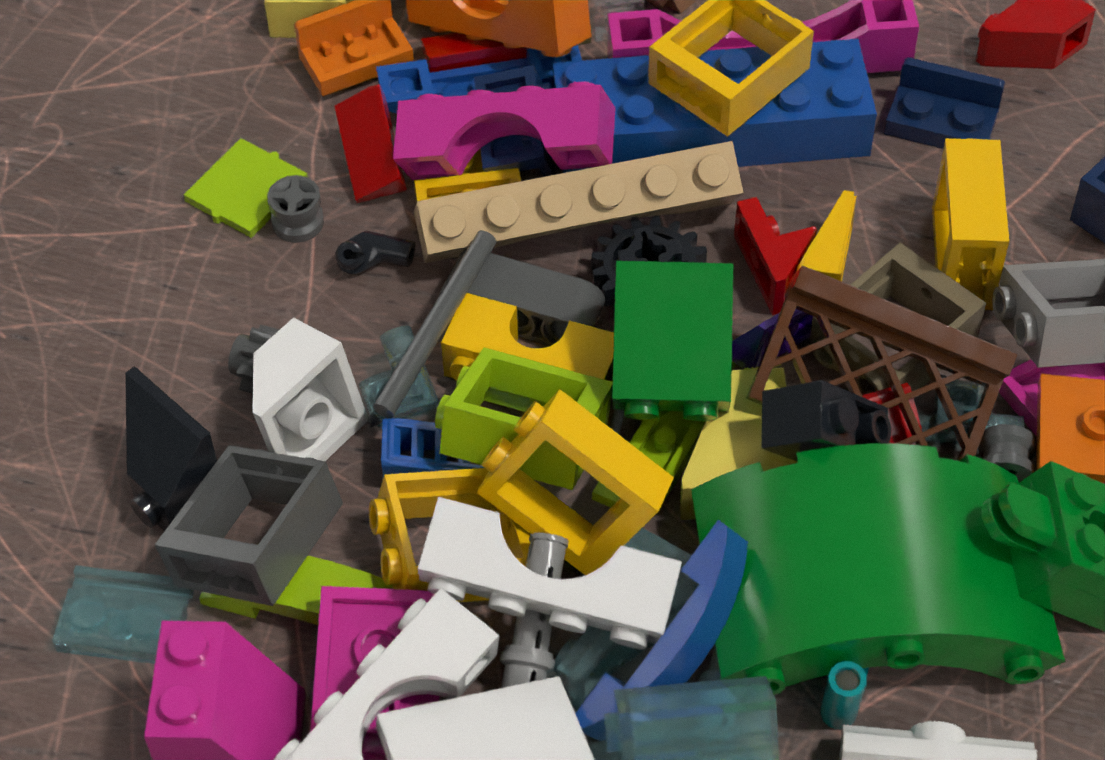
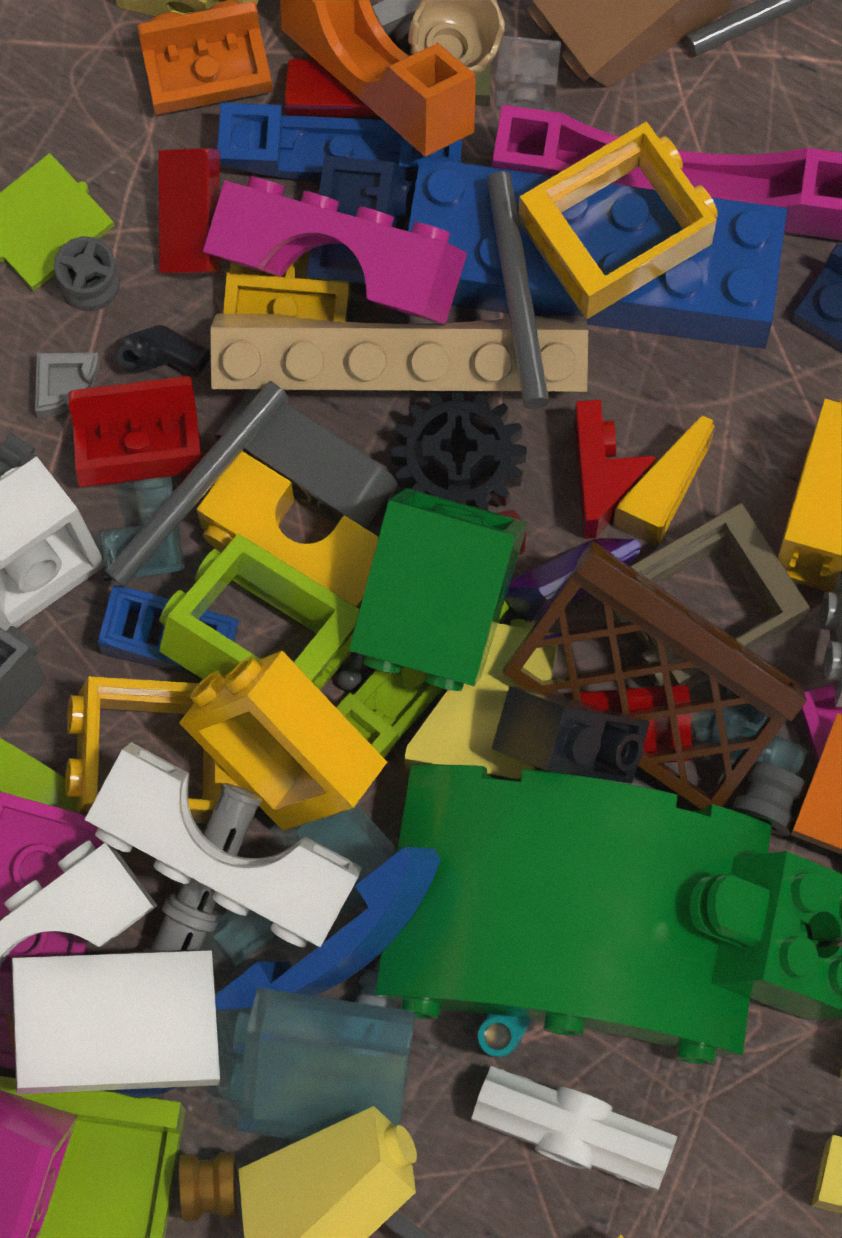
camera: 15 degrees right, 20 degrees up
(295, 290) = (59, 375): none -> light grey tile
(367, 302) = (135, 431): none -> red bracket
(666, 123) = (517, 290): none -> dark grey bar

